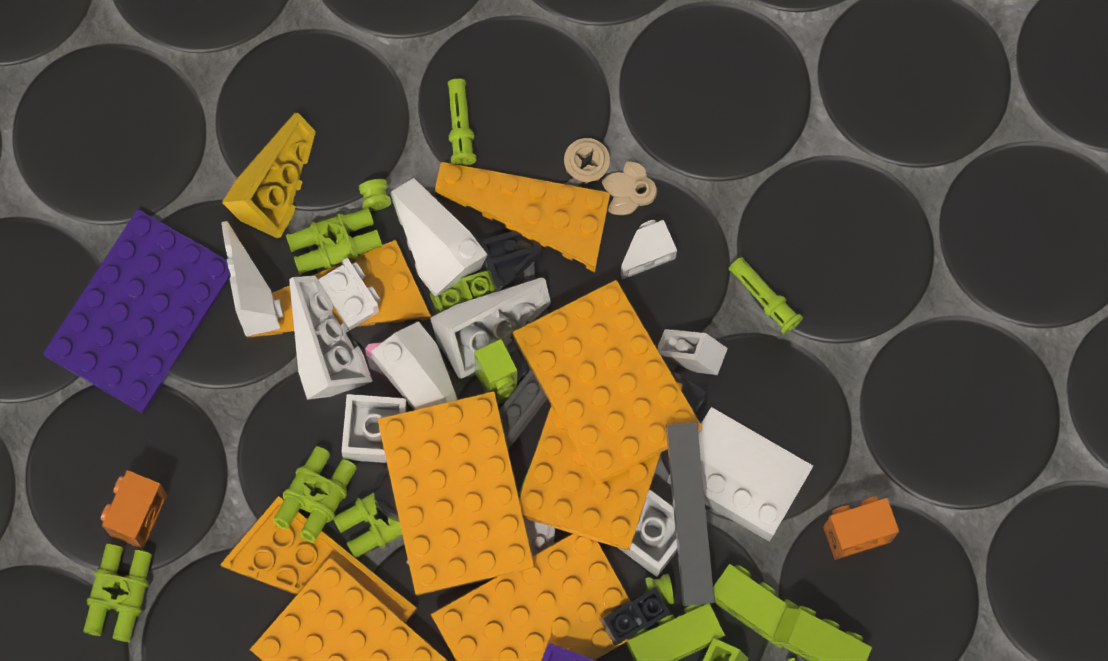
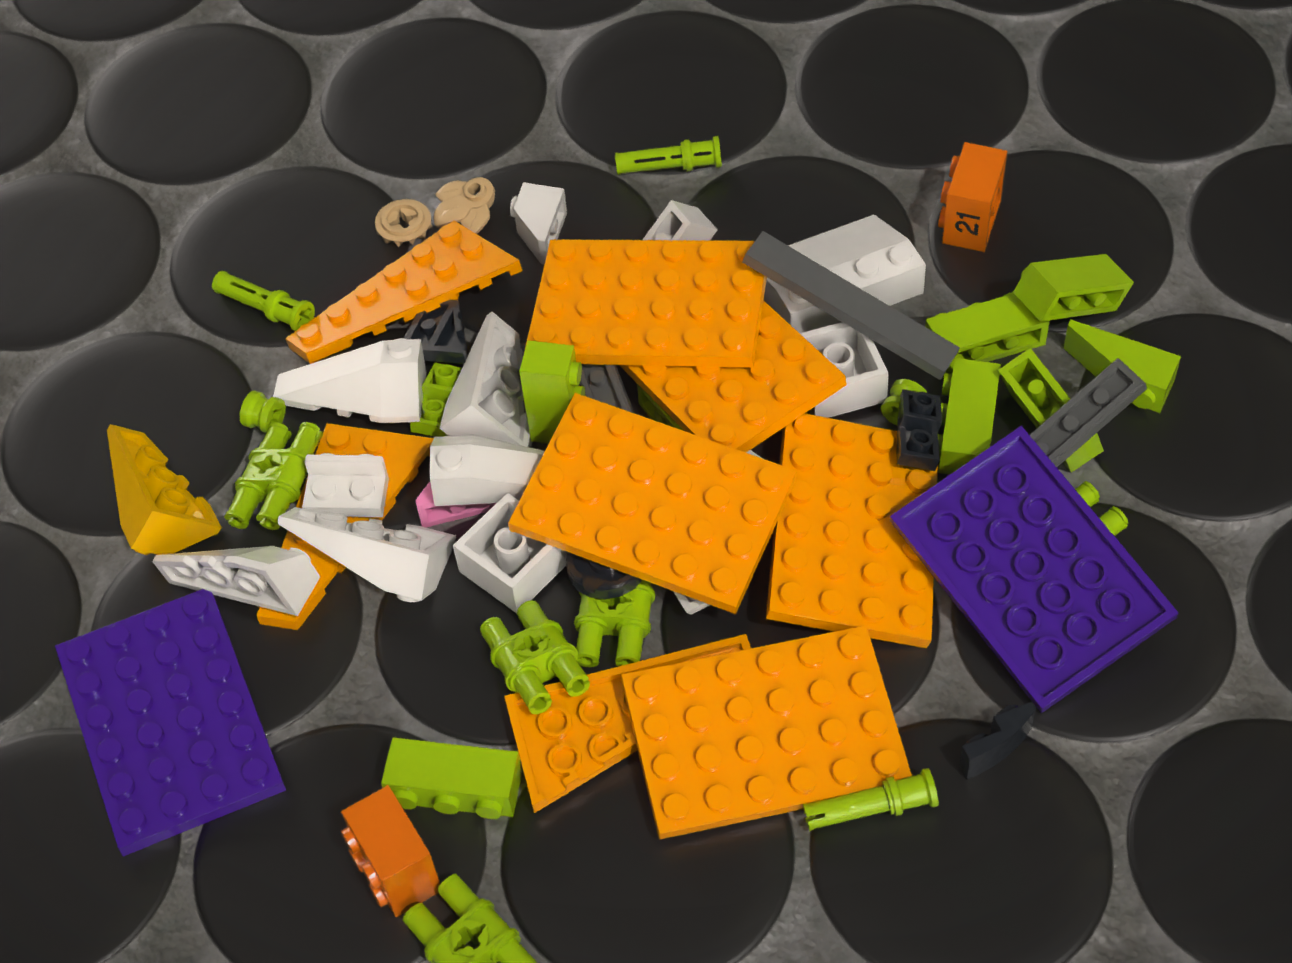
camera: 45 degrees left, 20 degrees down
(206, 506) = (453, 777): none -> lime brick

